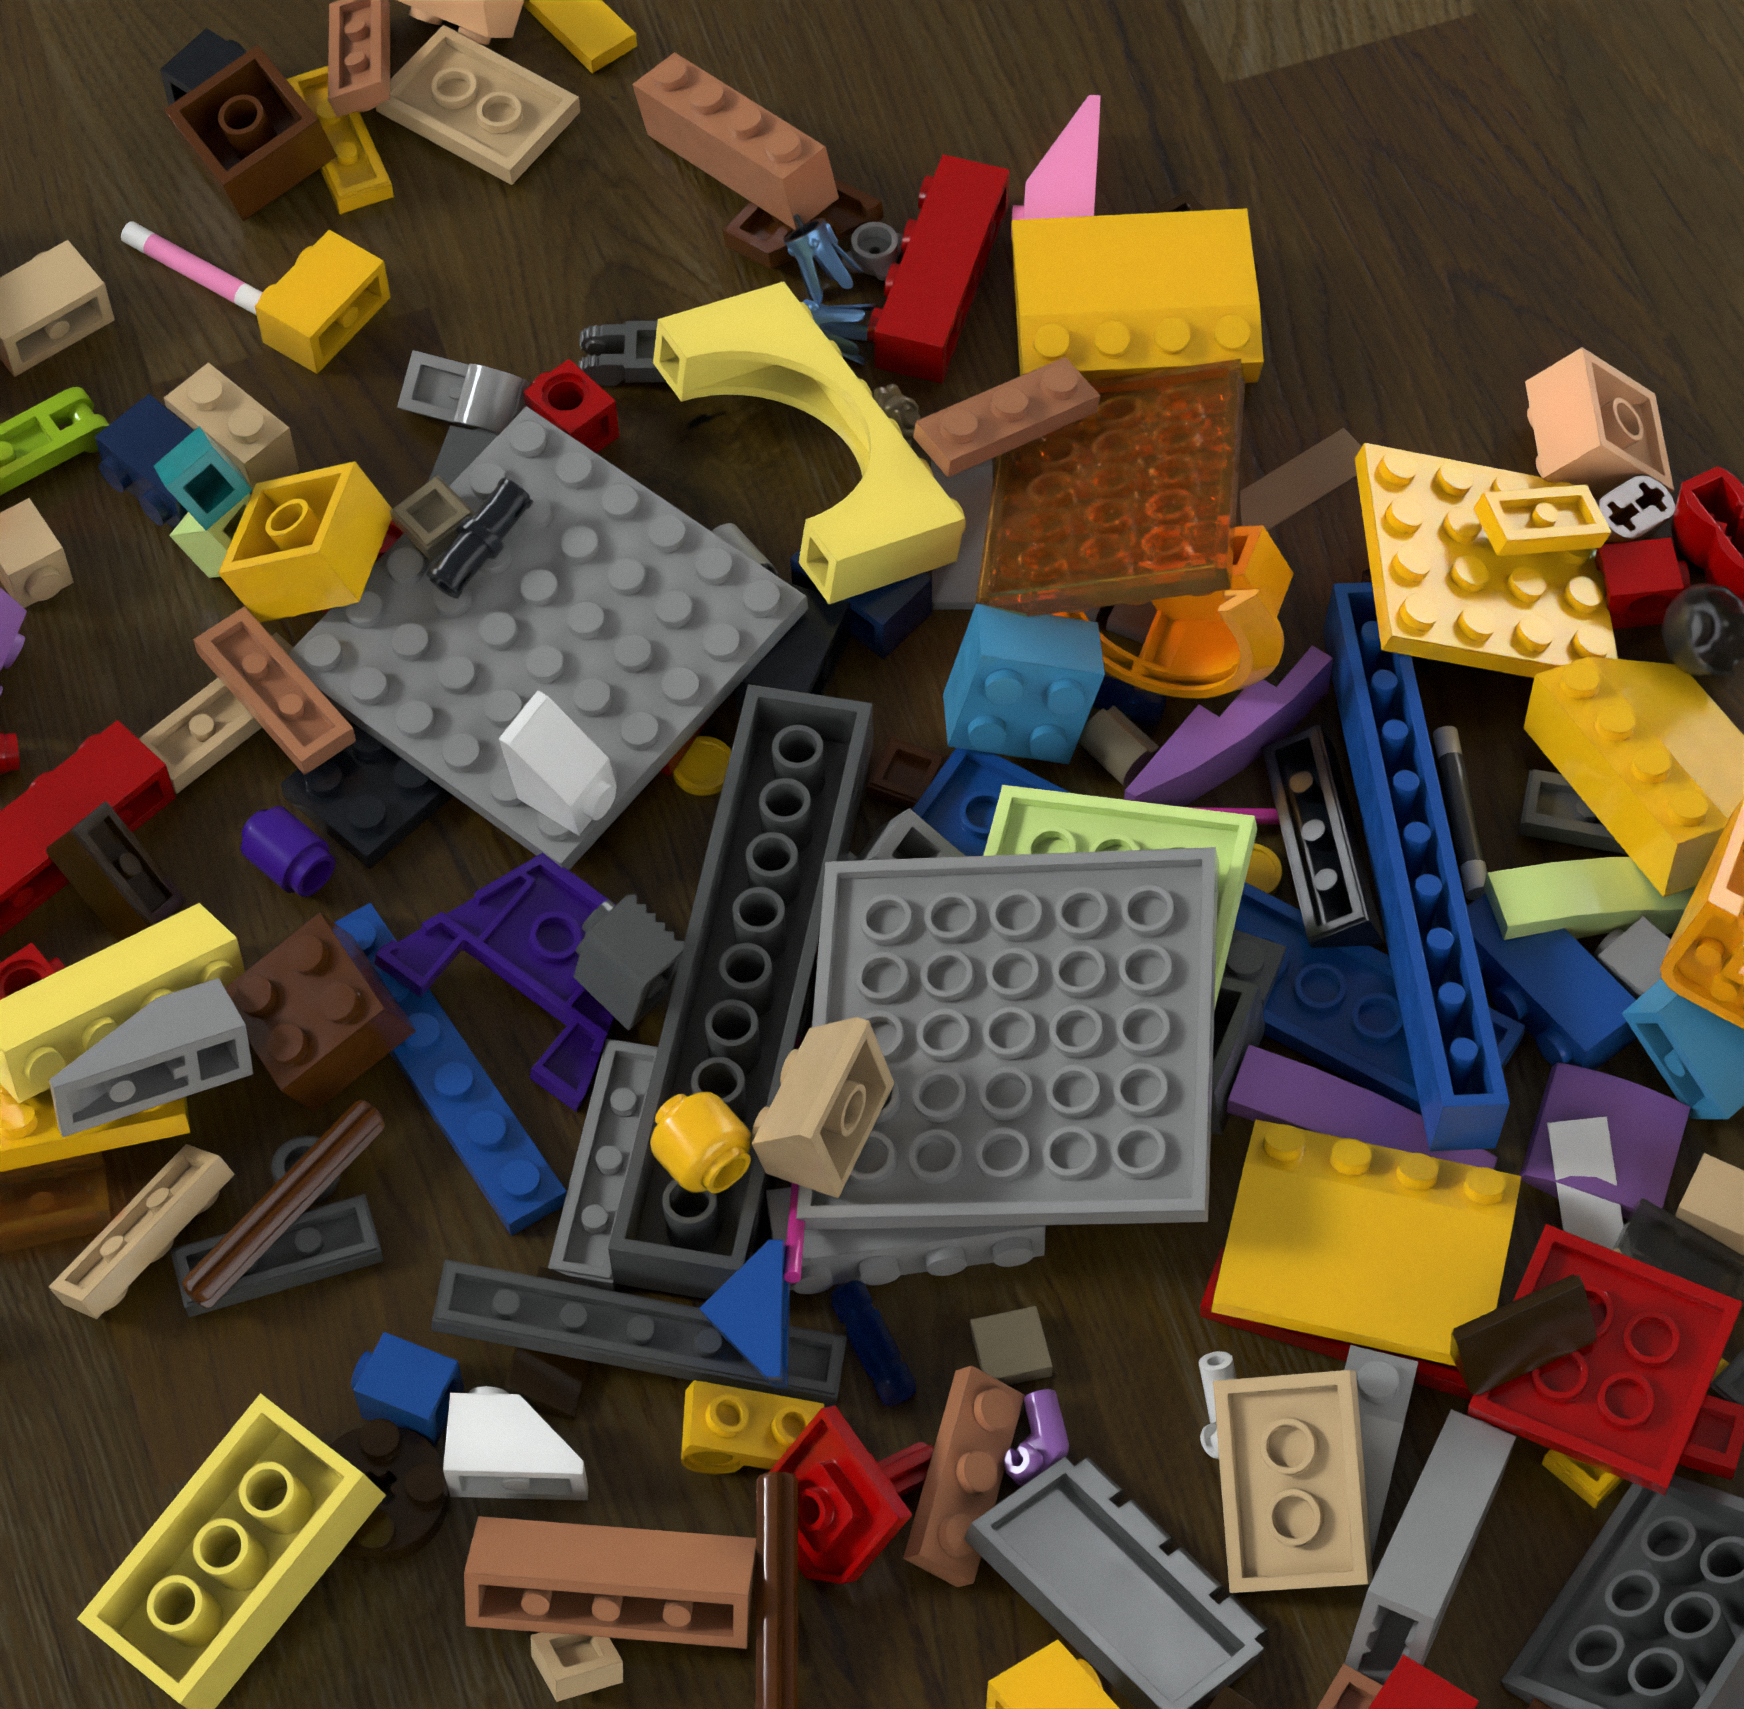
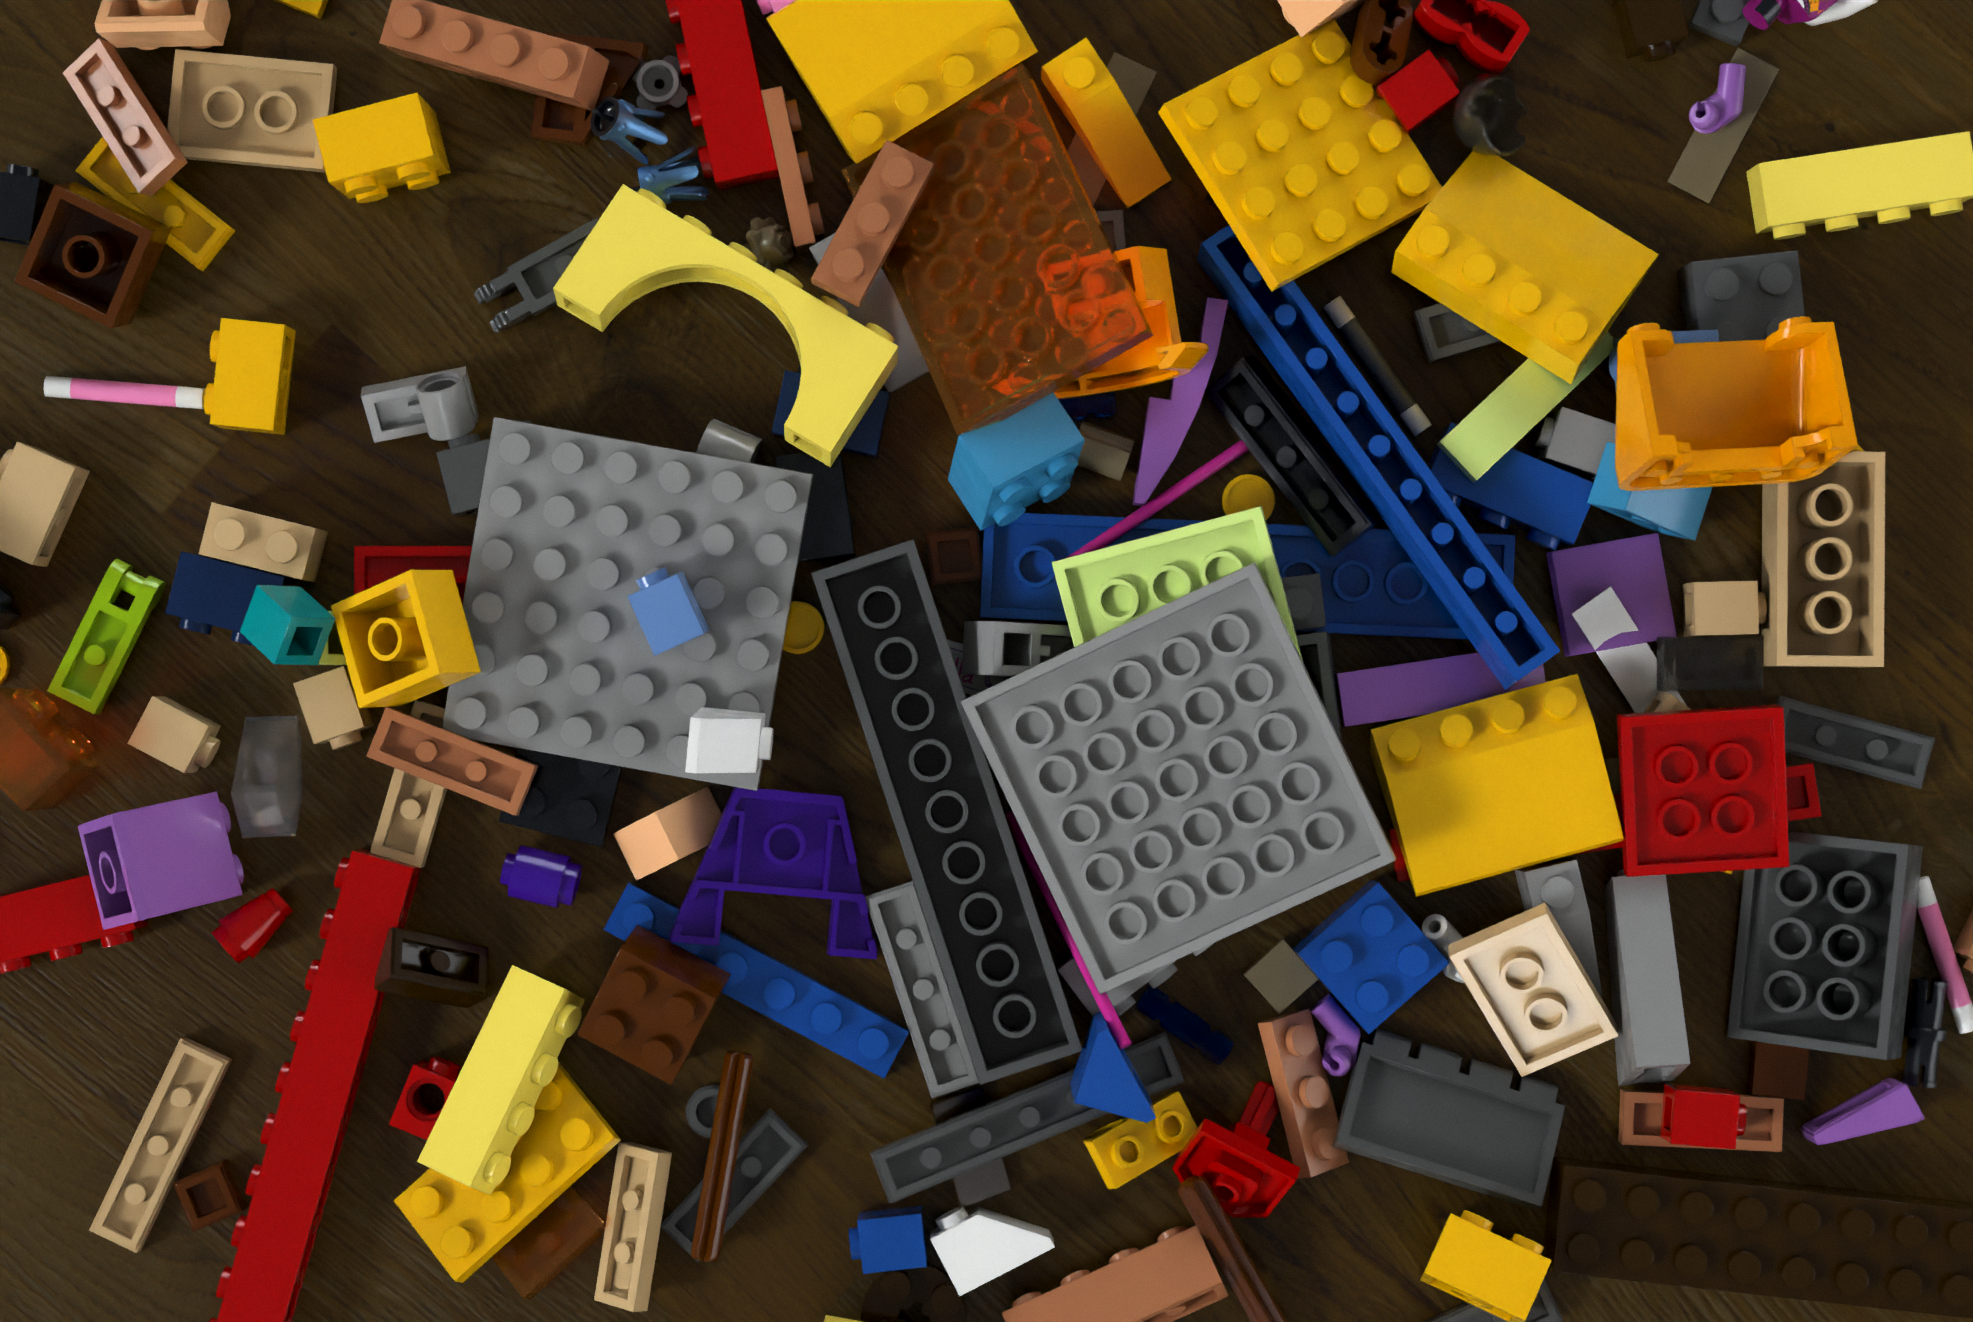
camera: 30 degrees left, 30 degrees up
(82, 635) = (268, 777): none -> clear slope
(155, 1057) = (574, 1111): light grey slope -> none
(190, 599) = (332, 708): none -> tan brick
(431, 517) = (488, 562): dark tan tile -> none
(438, 875) = (669, 833): none -> light nougat slope
(479, 538) = (538, 567): black pin -> none
(575, 405) = (535, 383): red brick -> none
(577, 166) = (382, 148): none -> yellow brick
(580, 632) = (667, 610): none -> medium blue brick
(627, 959) = (861, 856): dark grey brick -> none
(701, 1142) = (1007, 985): yellow head -> none
(824, 1107) = (1081, 922): tan slope -> none
(960, 358) = (793, 168): none -> nougat plate
(1125, 1364) = (1370, 955): none -> blue brick
(1297, 465) = (1105, 122): none -> yellow slope
(1523, 1335) = (1645, 815): dark brown slope -> none
(1542, 520) = (1332, 100): yellow plate -> none

